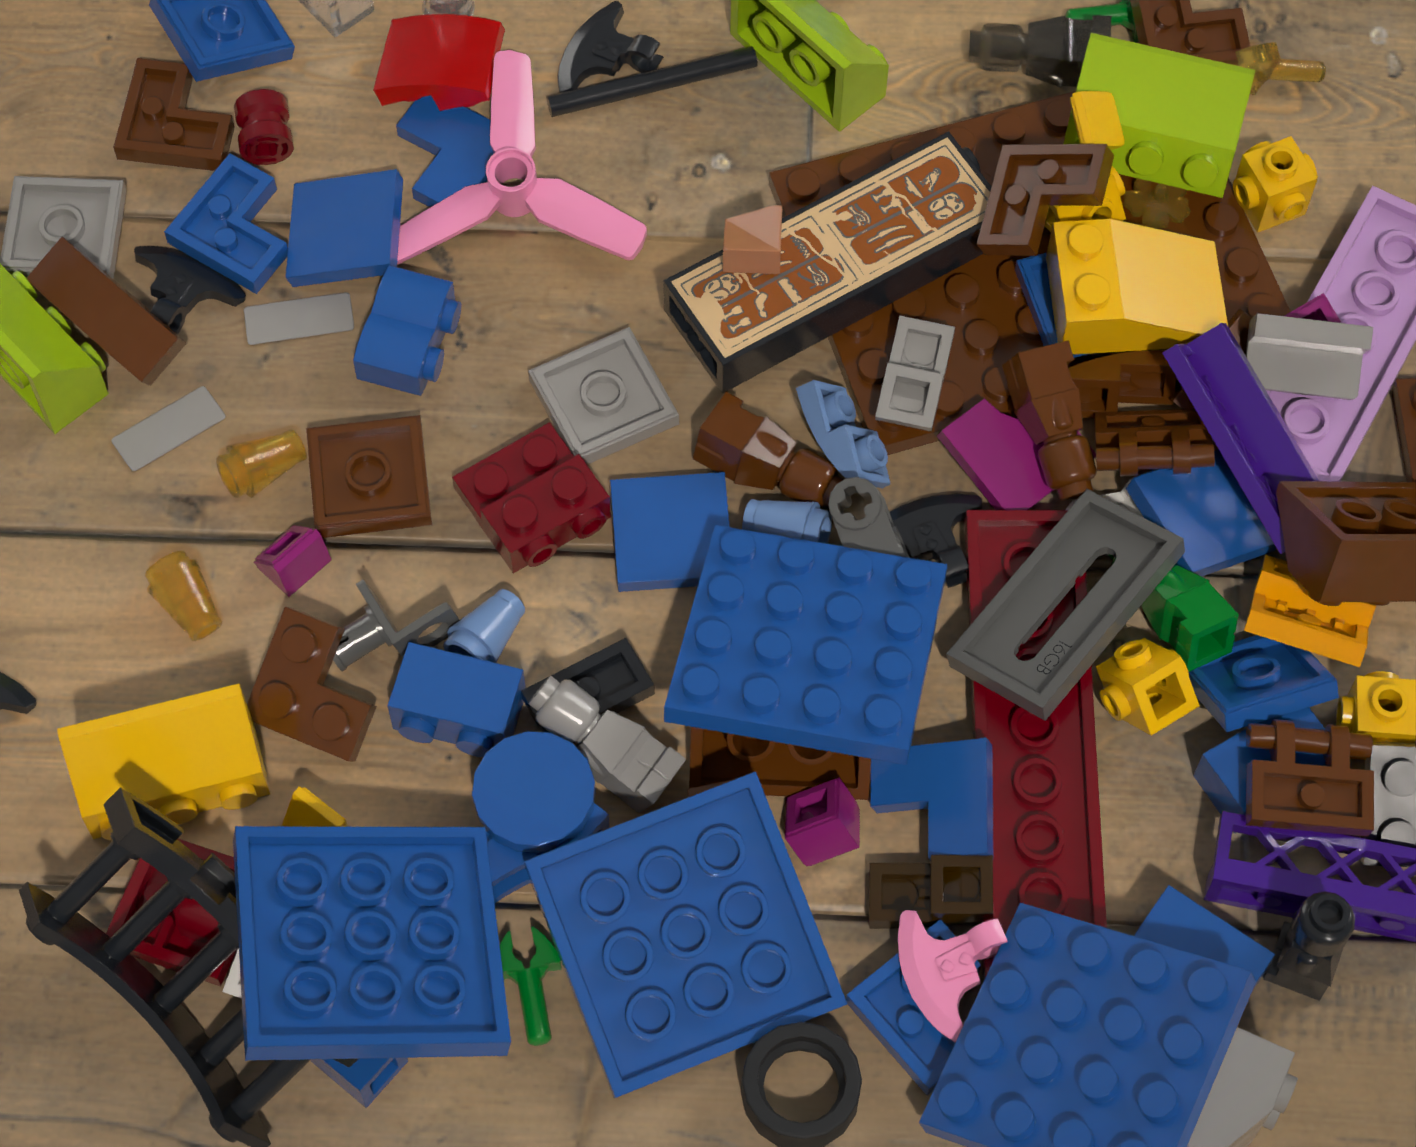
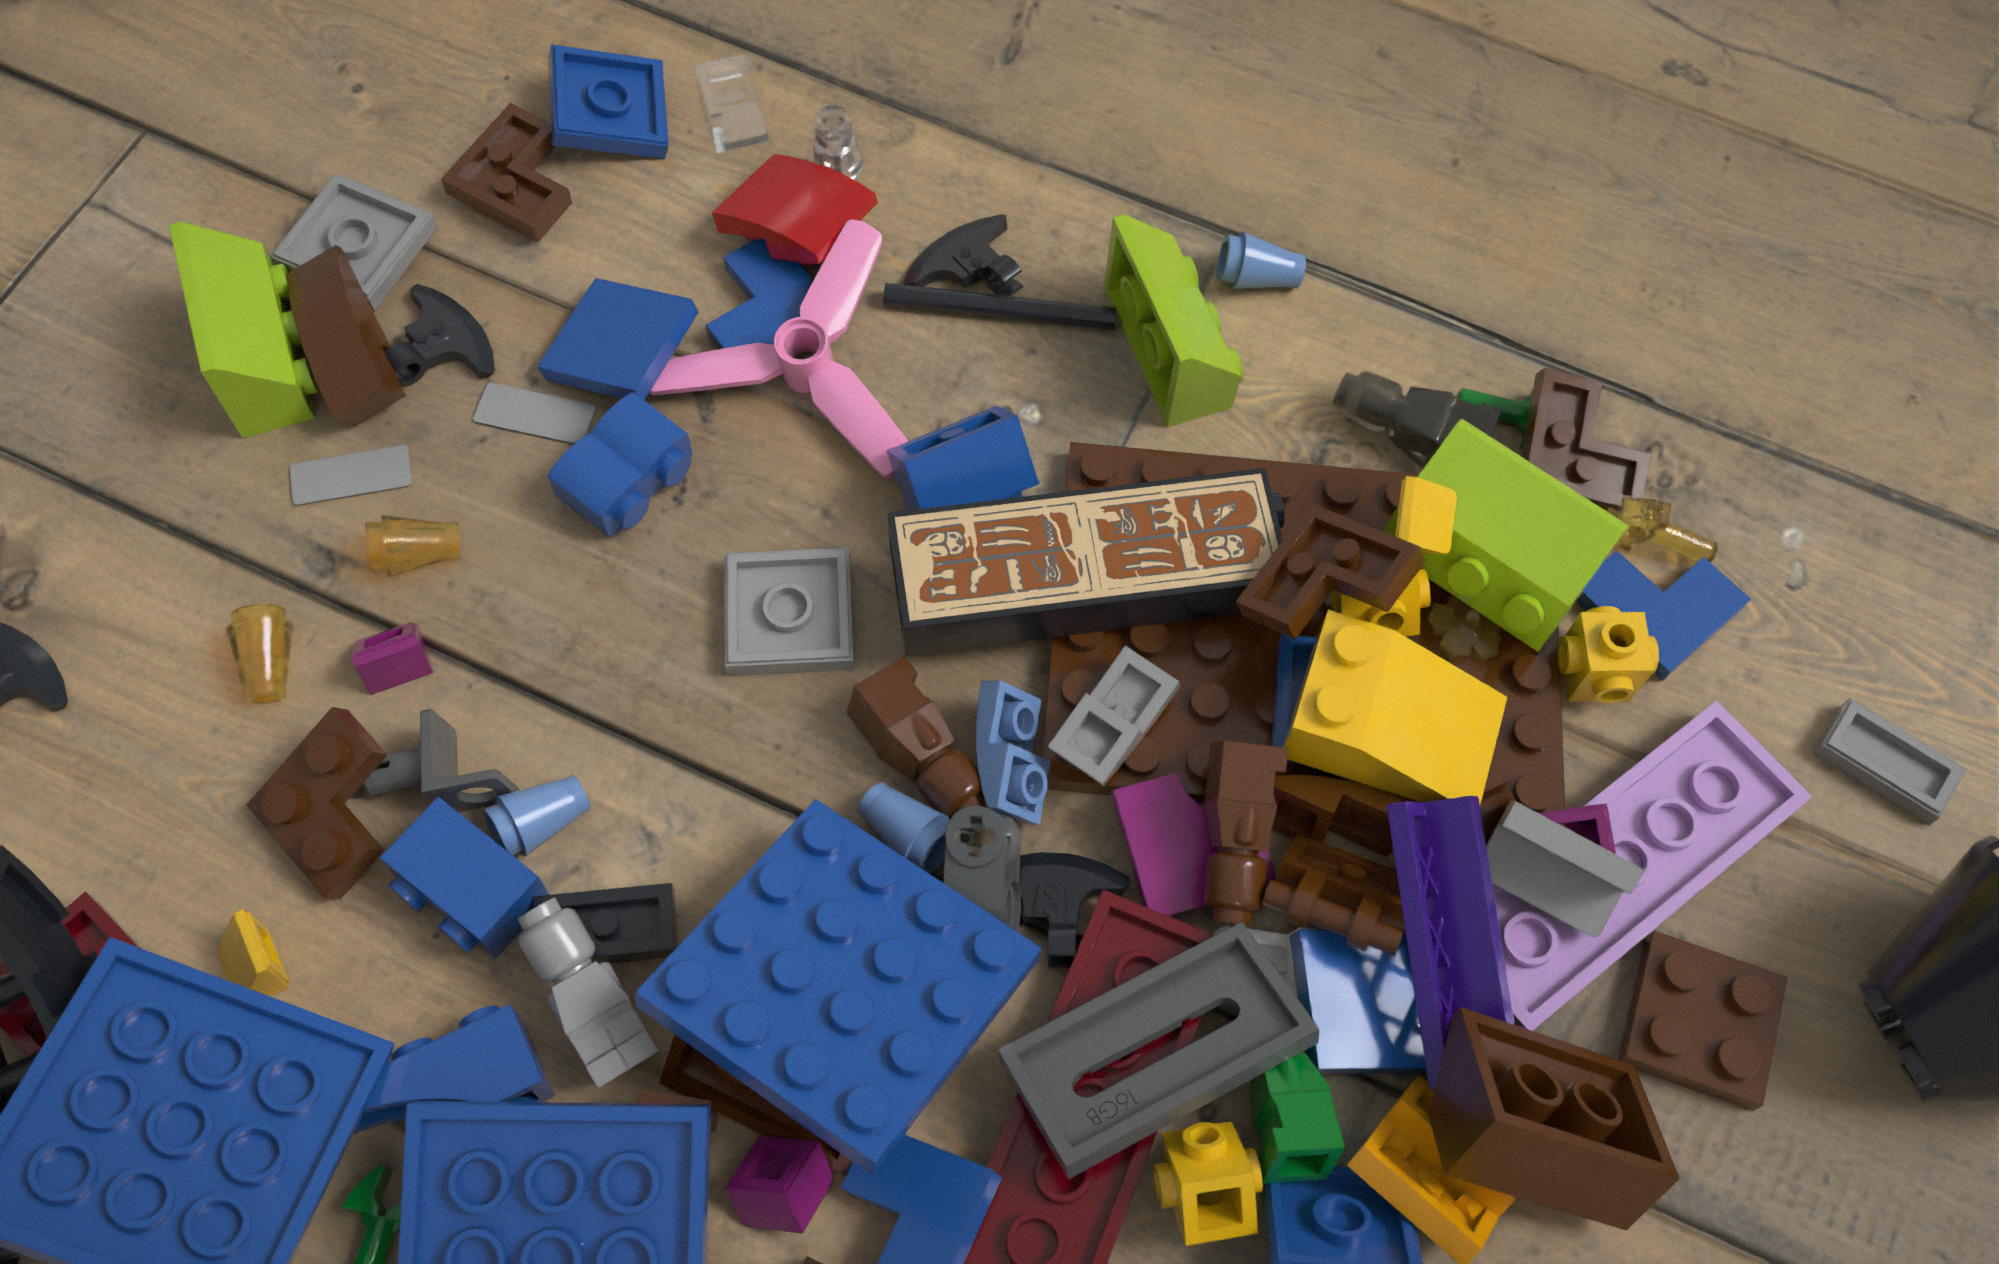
camera: 20 degrees right, 0 degrees up
(169, 754) = (128, 825): yellow slope -> none
(219, 228) = (500, 291): blue plate -> none
(264, 131) = (592, 216): dark red wheel -> none
(368, 476) = (508, 601): reddish brown plate -> none
(533, 498) = (660, 690): dark red plate -> none
(533, 791) = (470, 1022): blue tile -> none
(665, 528) = (776, 772): blue tile -> none
(691, 219) = (965, 462): none -> blue brick
(753, 241) = (997, 508): nougat slope -> none
(1317, 130) = (1680, 616): none -> blue tile

